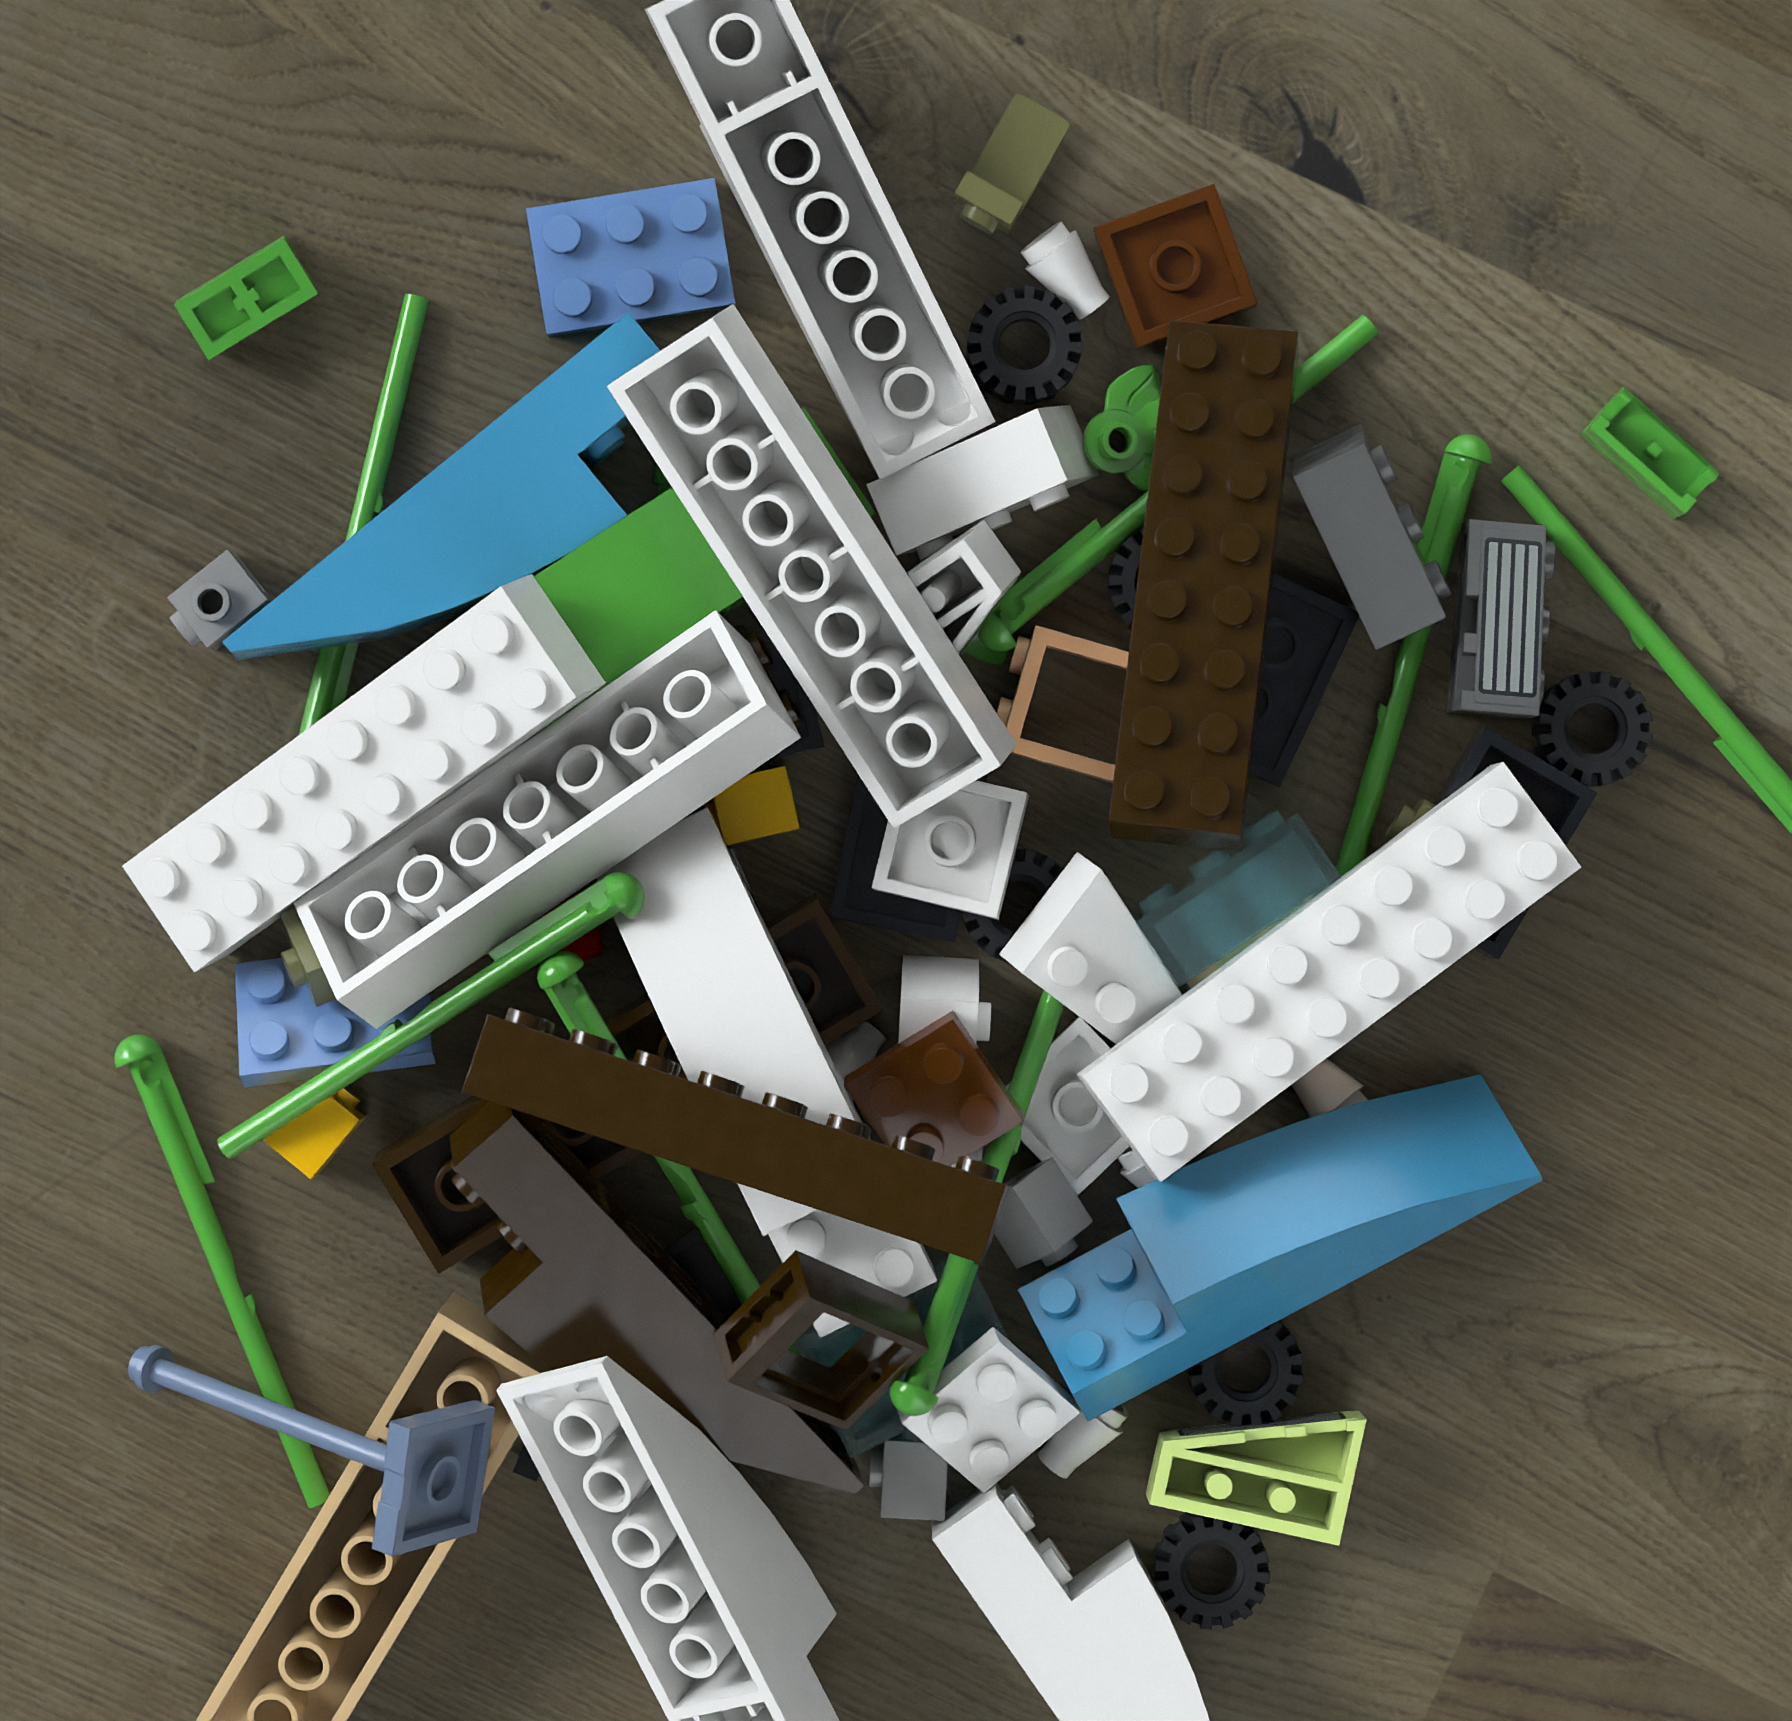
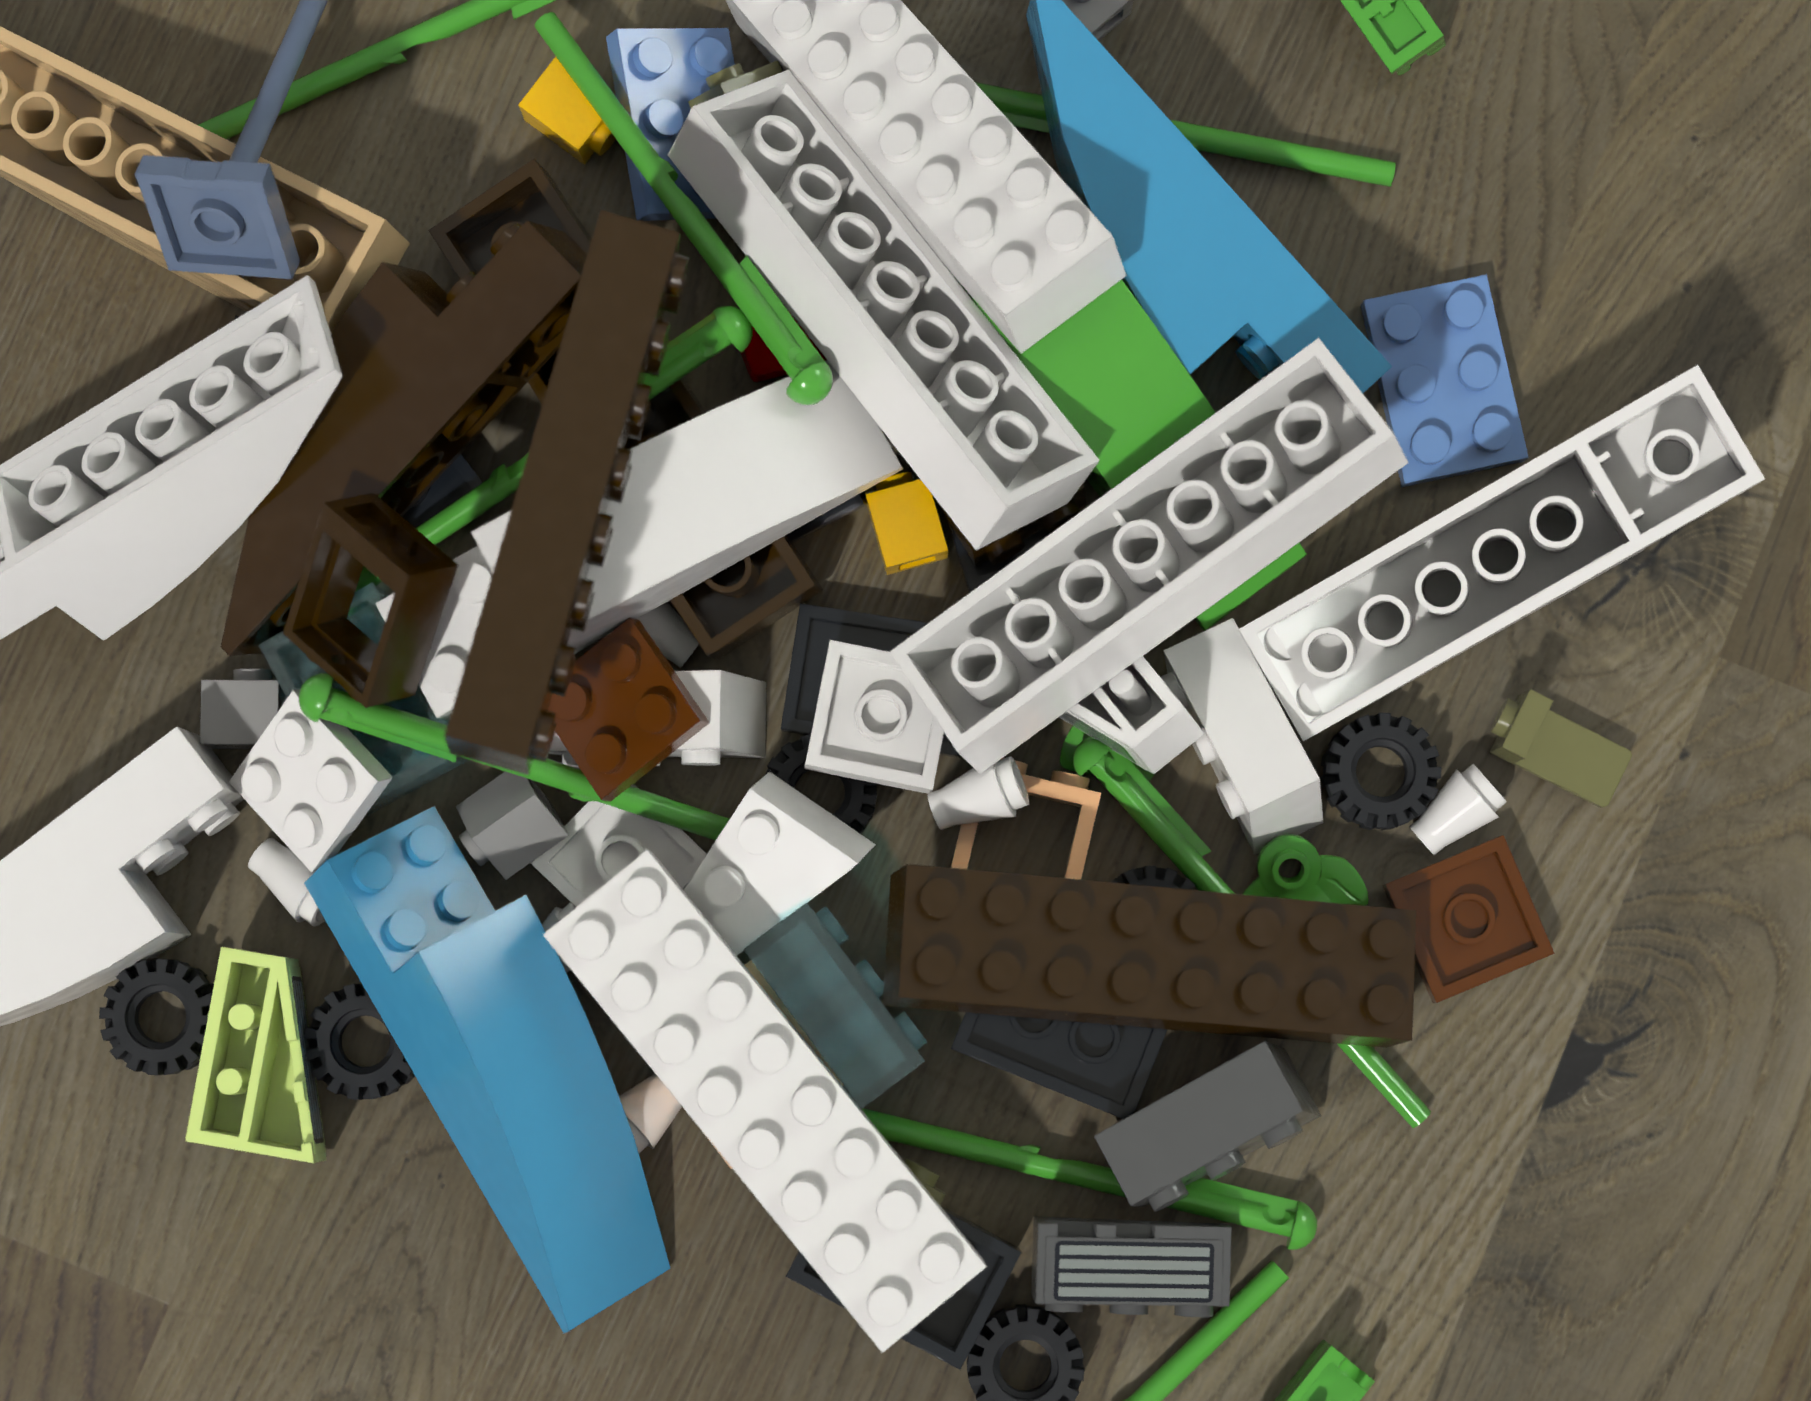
camera: 90 degrees right, 5 degrees down
(1038, 745) = (980, 796): none -> white cone

